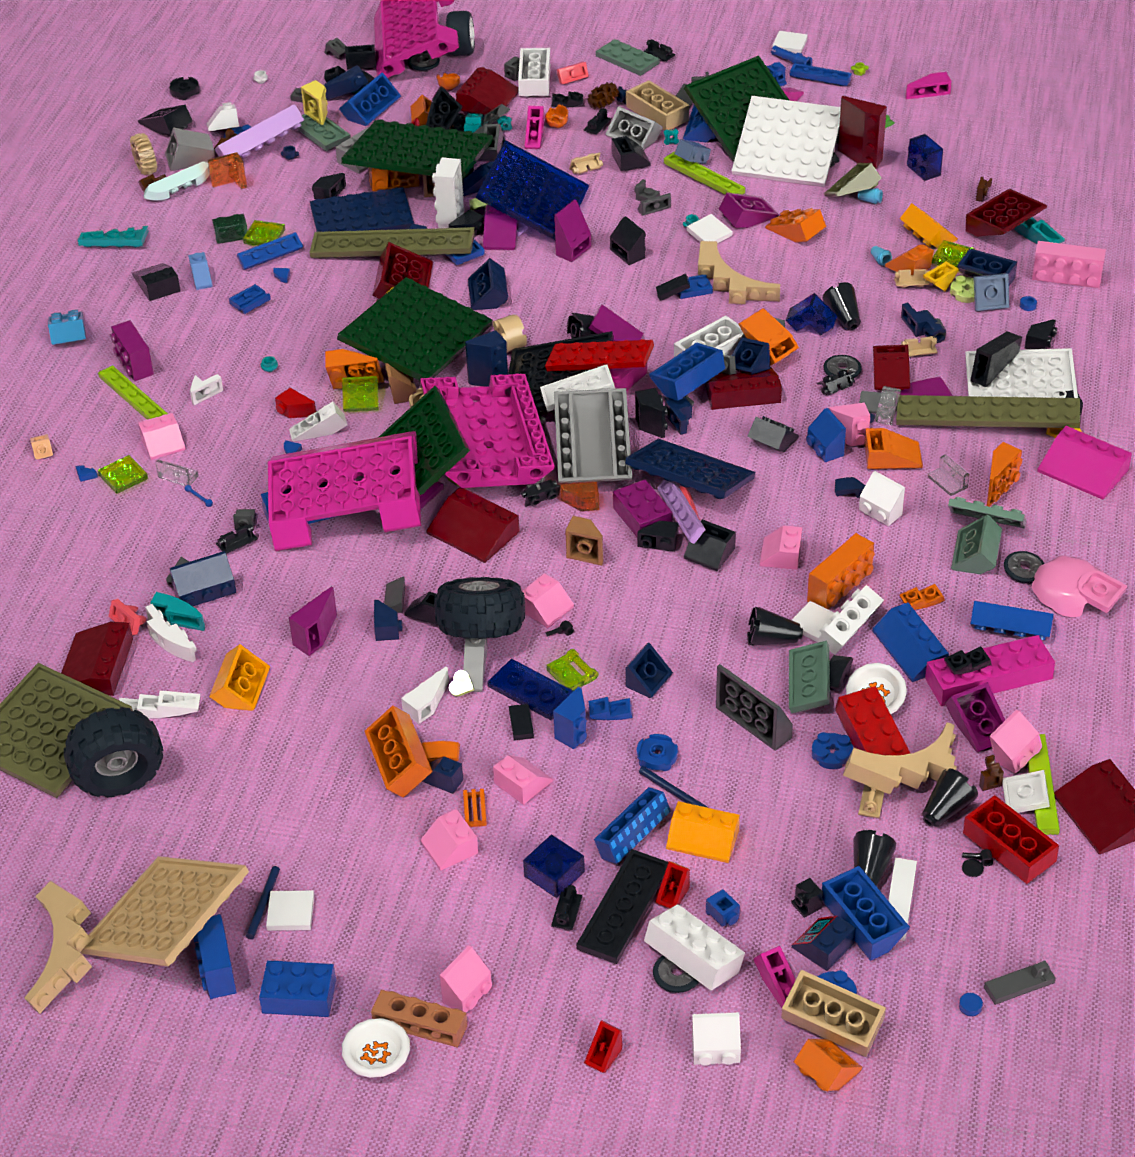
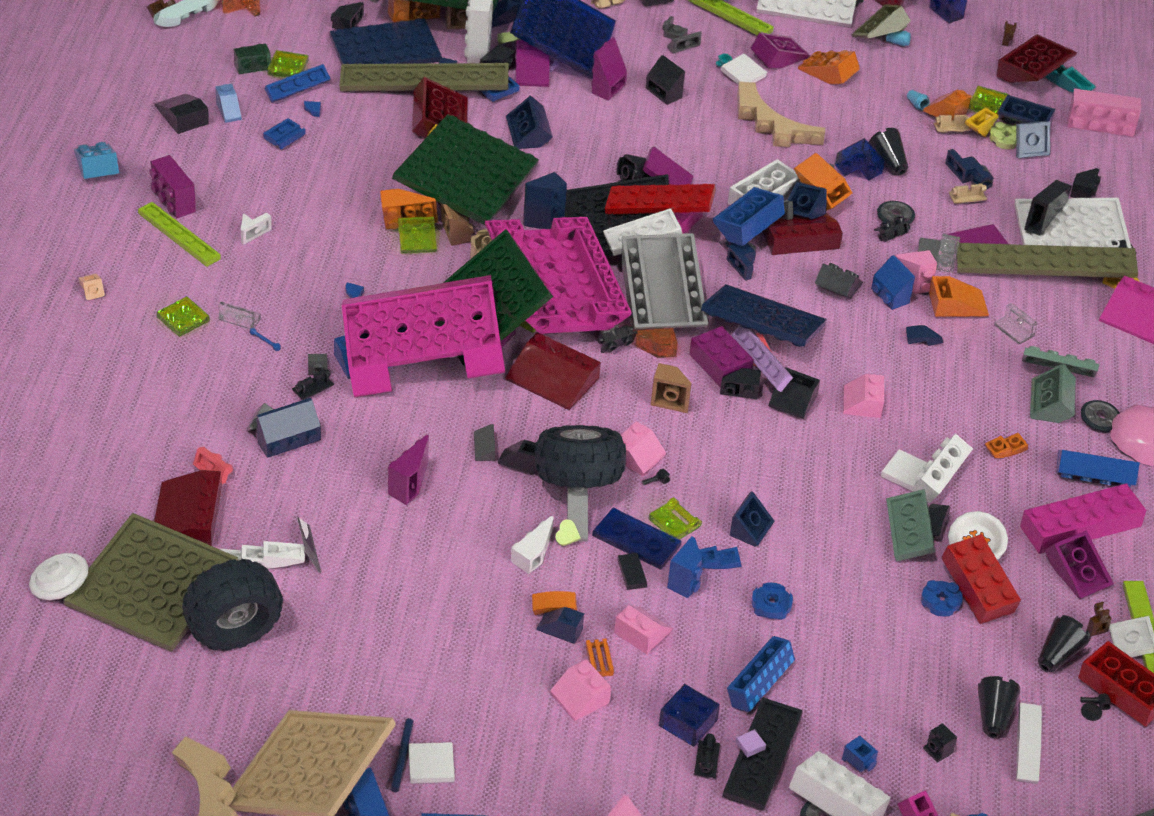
camera: 10 degrees left, 0 degrees up
(85, 473) = (142, 315): blue tile -> none
(114, 238) = (129, 65): teal wing -> none
(161, 436) = (217, 277): bright pink slope -> none
(169, 637) = (262, 487): white slope -> none
(178, 611) = (265, 460): teal slope -> none
(204, 689) = (308, 542): none -> sticker
(239, 680) = (341, 529): light orange slope -> none
(269, 364) = (316, 202): teal plate -> none
(294, 404) = (351, 245): red slope -> none
(321, 423) = (380, 265): white slope -> none
(386, 622) = (481, 470): dark blue slope -> none
(398, 751) = (517, 601): orange brick -> none
(511, 330) = (565, 168): tan brick -> none
(611, 895) = (750, 743): none -> lavender tile
(650, 412) = (716, 258): black slope -> none
(669, 787) = (793, 638): dark blue bar -> none
(673, 287) = (716, 128): black tile -> none
(674, 885) = (809, 733): red slope -> none
(698, 286) = (735, 128): blue plate -> none
(703, 832) = (829, 679): light orange slope -> none
(751, 709) = (861, 557): dark grey slope -> none
(771, 628) = (866, 477): black cone -> none
(826, 941) = (963, 784): dark blue slope -> none
(841, 571) = (928, 420): orange brick -> none
(866, 908) = (998, 756): blue slope -> none
(871, 802) = (987, 644): tan hinge -> none
(882, 499) = (956, 347): white slope -> none
(887, 771) = (1024, 616): tan arch -> none
(891, 366) = (946, 214): dark red slope -> none
(909, 640) = (1001, 489): blue slope -> none
(926, 227) = (958, 71): light orange slope -> none
(968, 662) = (1066, 510): black slope -> none
(1004, 471) = (1069, 320): orange slope -> none
(1015, 742) = (1120, 589): bright pink slope -> none
(1028, 303) = (1067, 151): blue tile -> none

